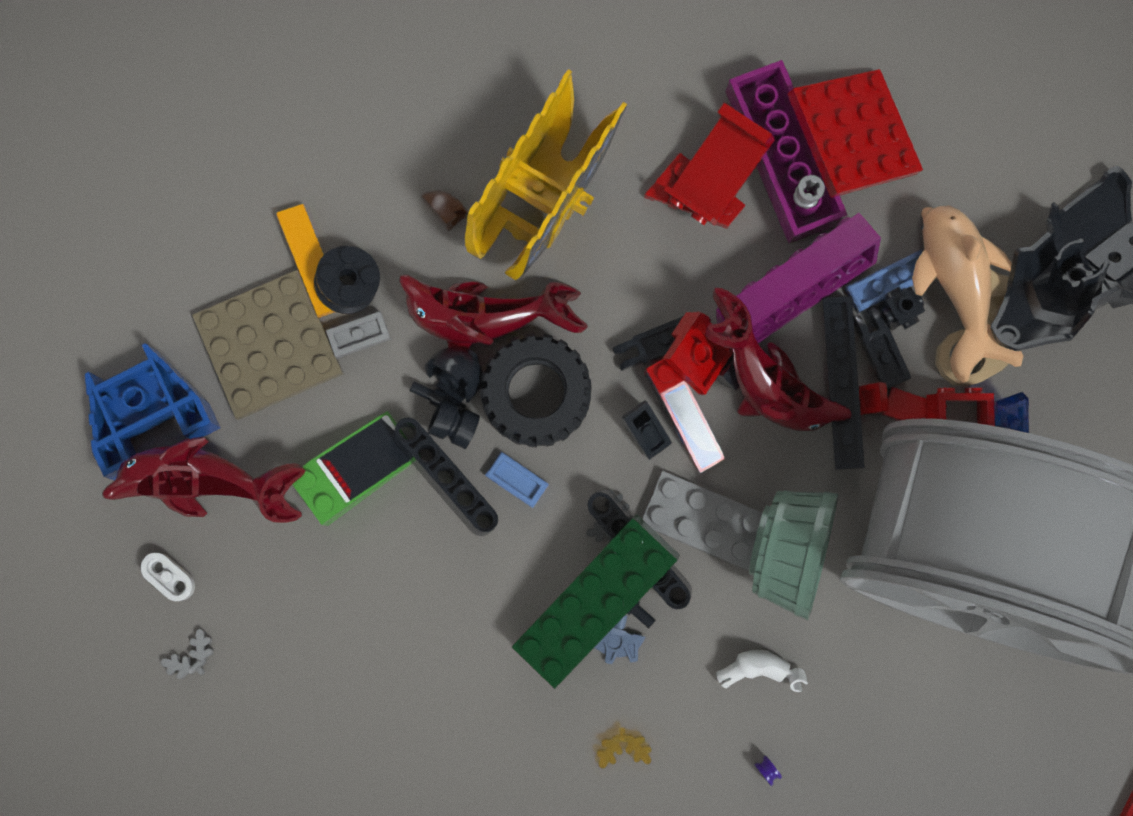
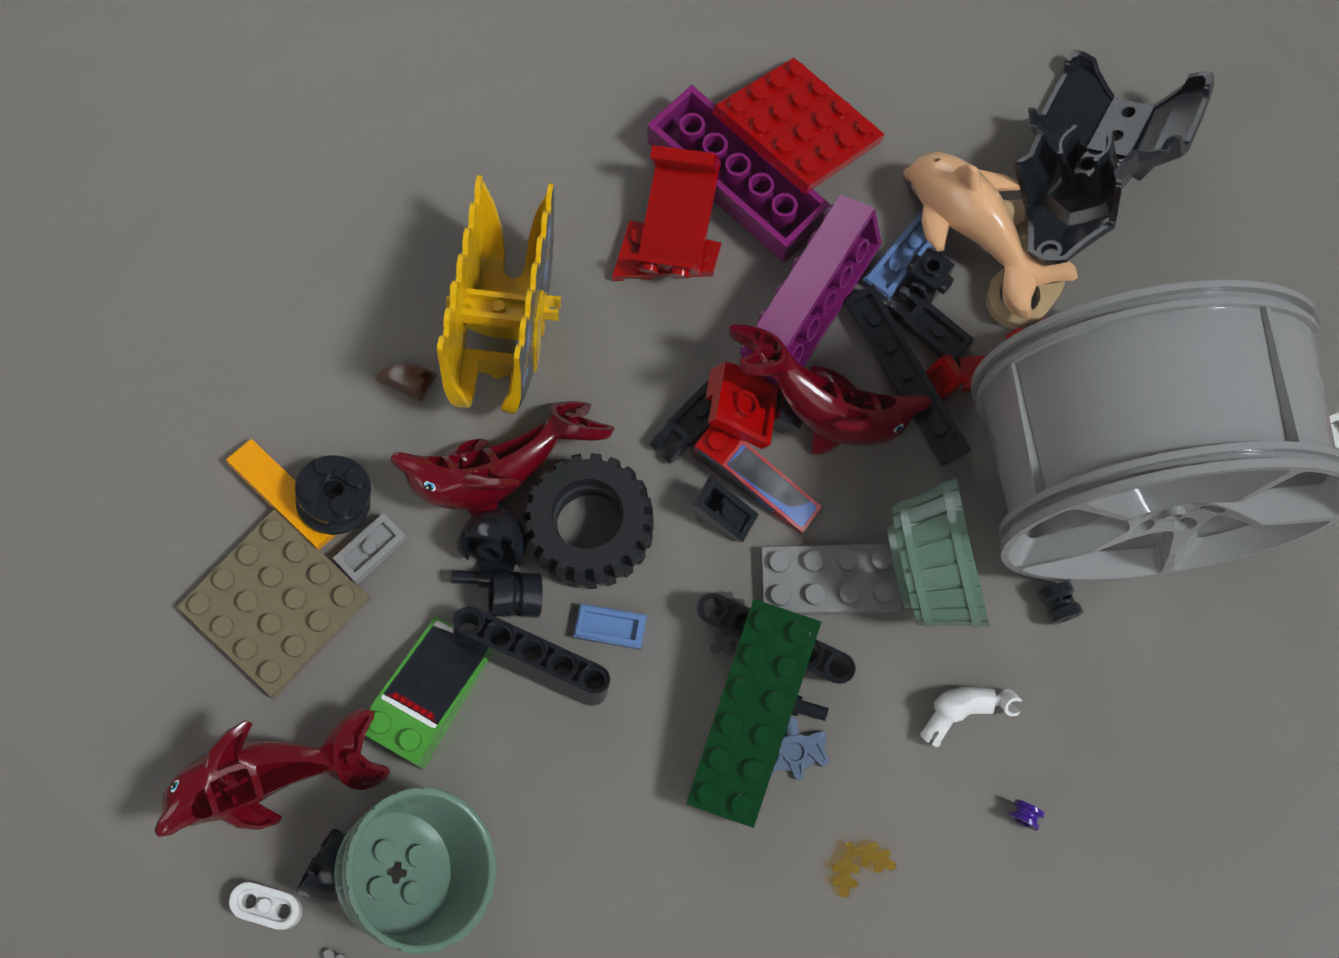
camera: 20 degrees left, 10 degrees down
(139, 402) = (154, 725): blue wedge -> none
(227, 573) = (318, 879): none -> black cylinder
(302, 626) = (445, 866): none -> sand green piece
(809, 183) = (779, 196): light grey bush -> none
(875, 628) = (1060, 602): none -> black wheel

